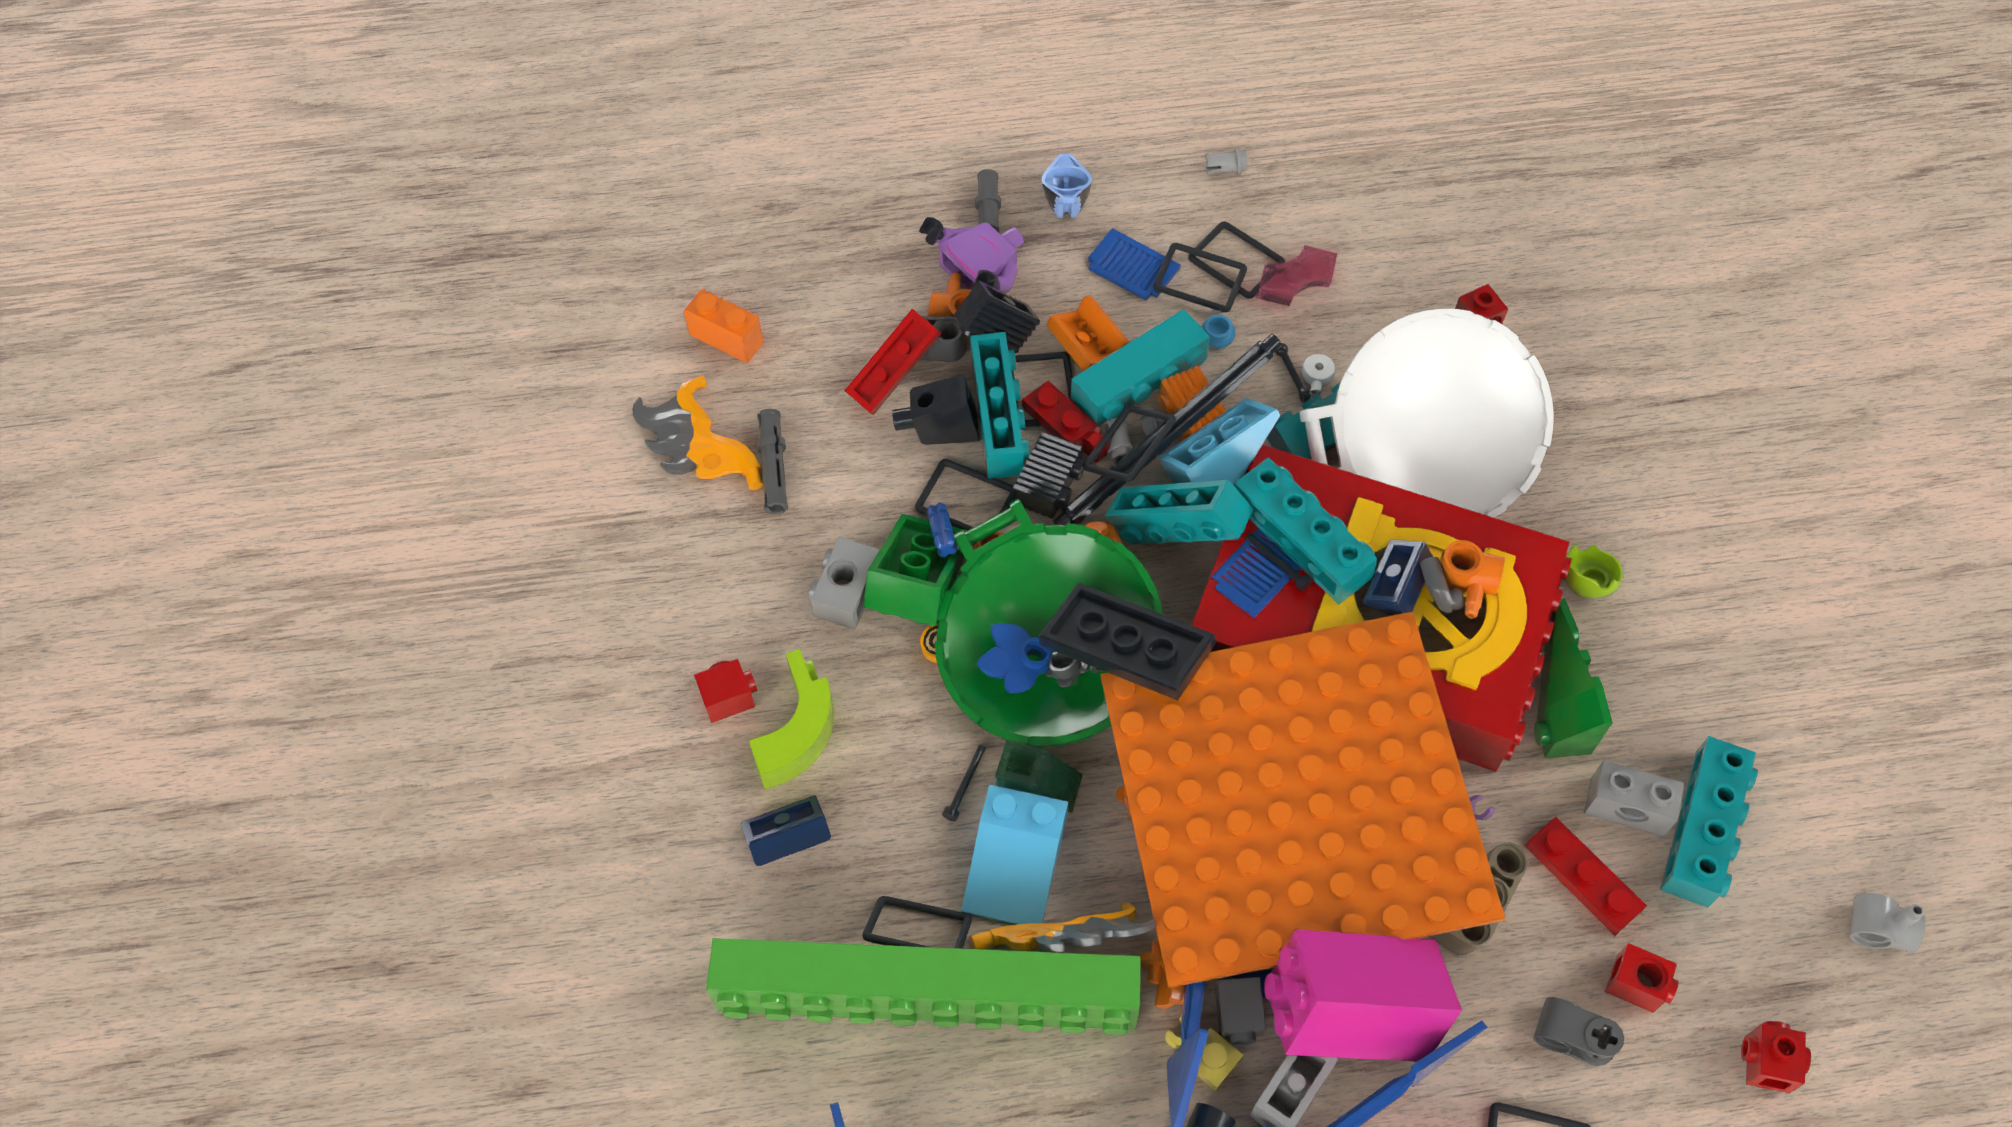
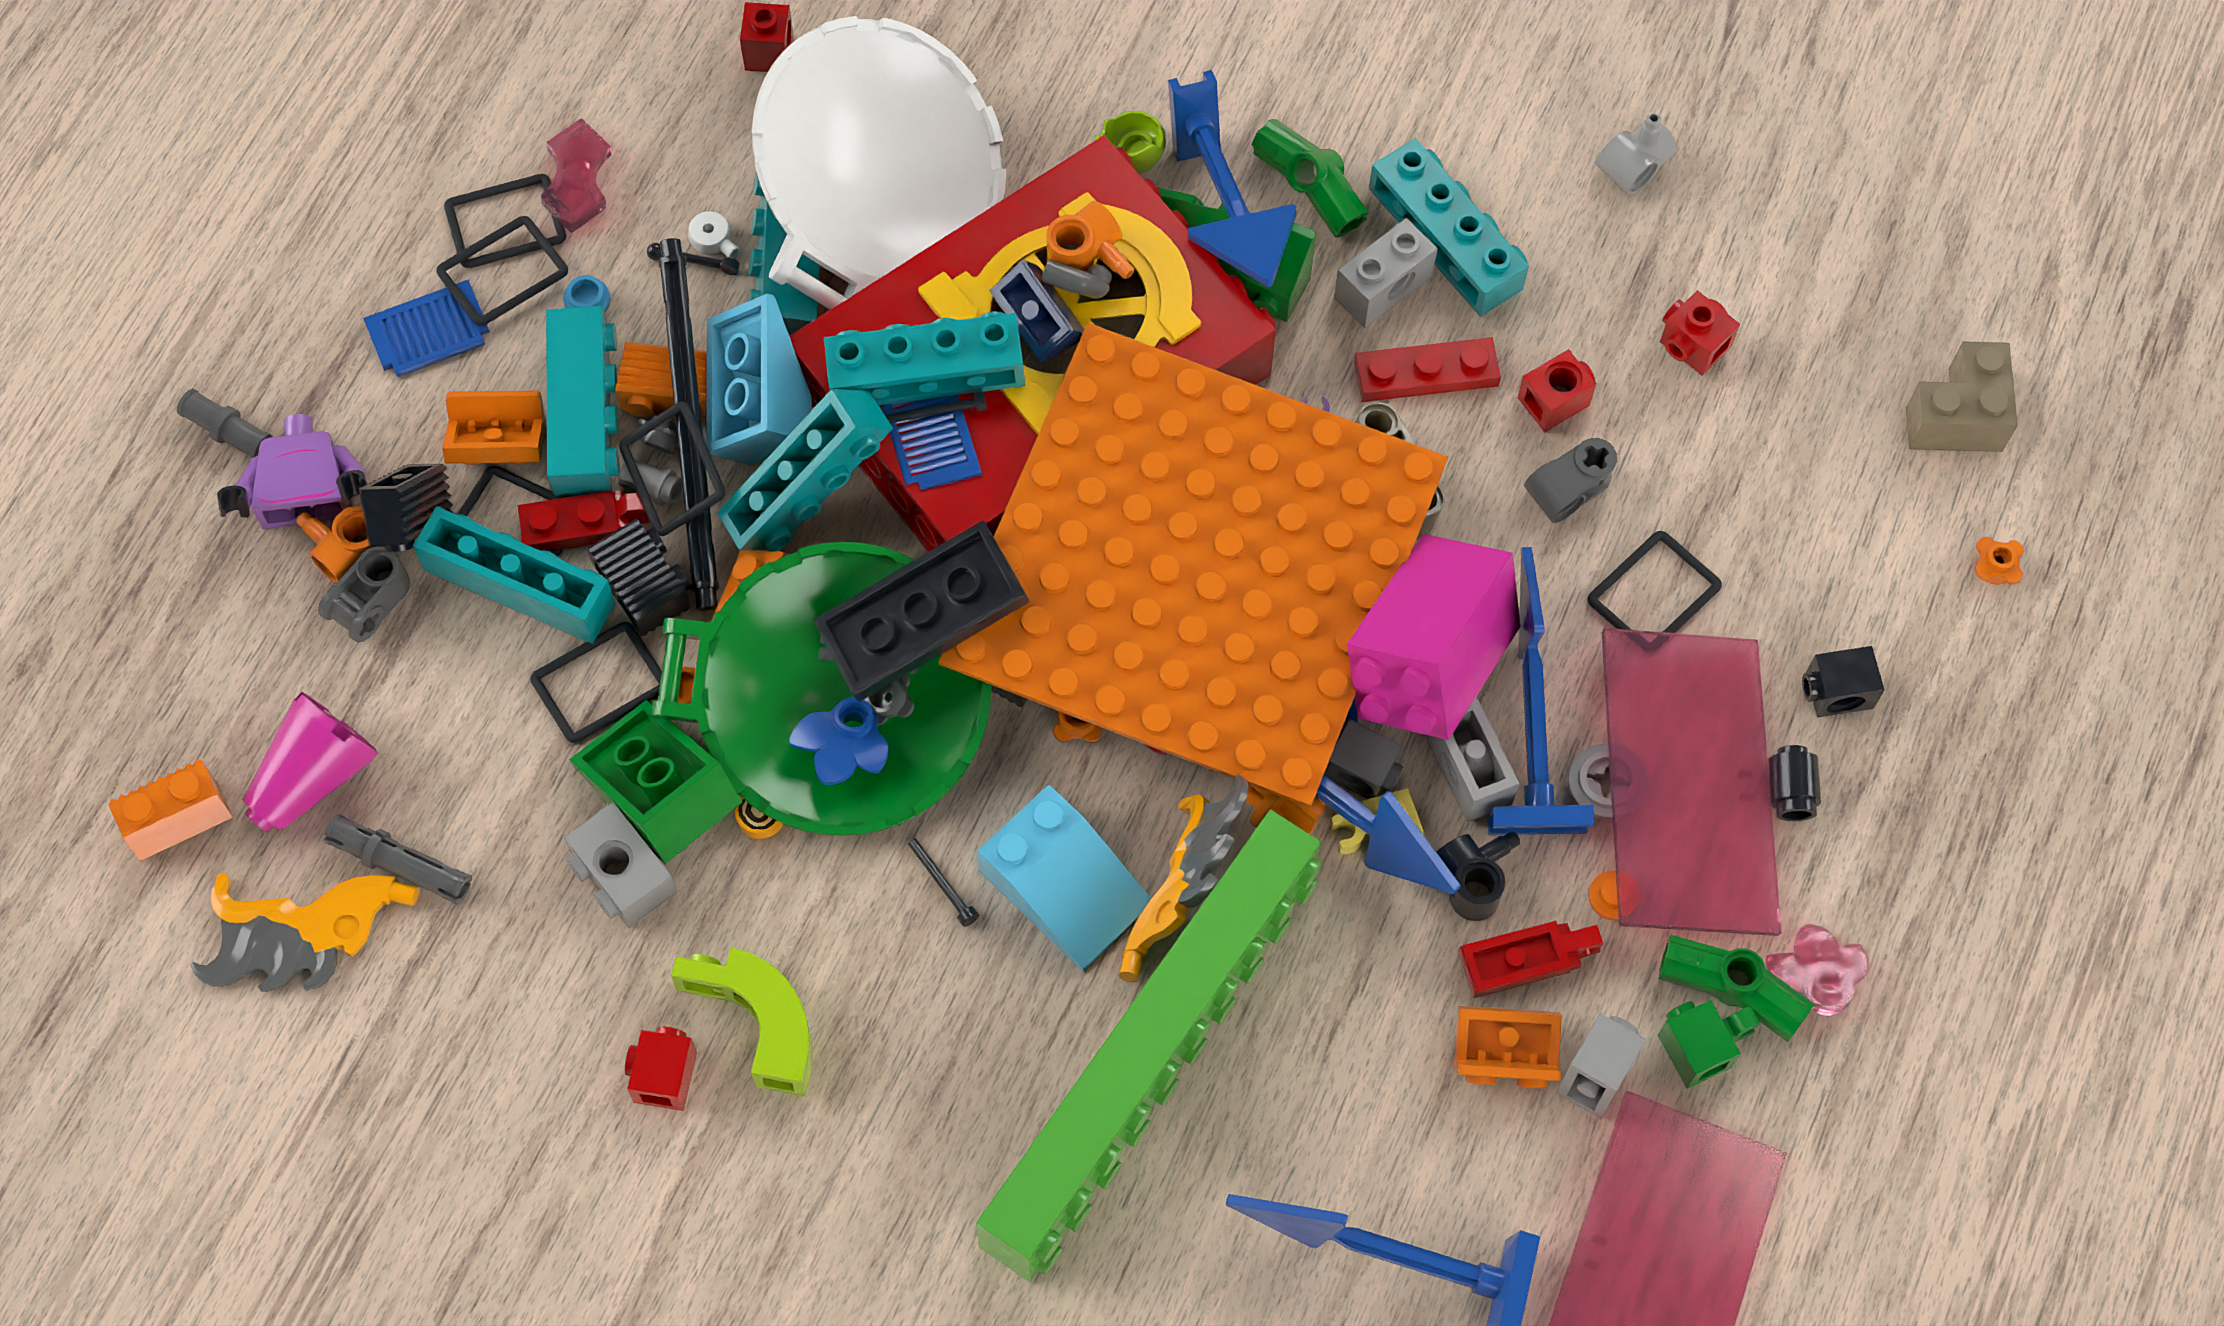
camera: 60 degrees left, 5 degrees up
(786, 830) = (871, 1097): dark blue slope -> none
(799, 372) = (304, 764): none -> dark pink cone
(867, 936) = (1066, 993): black piece -> none
(892, 361) = (374, 650): red plate -> none
(940, 412) = (479, 639): black torso -> none
(942, 529) = (631, 724): blue axle -> none
(1038, 773) = (988, 802): clear green slope -> none
(1066, 185) = (277, 325): light blue hat -> none
(1226, 162) = (371, 148): light grey pin -> none
(1566, 680) = (1245, 239): none -> blue piece
(1670, 702) = (1327, 190): none -> green piece

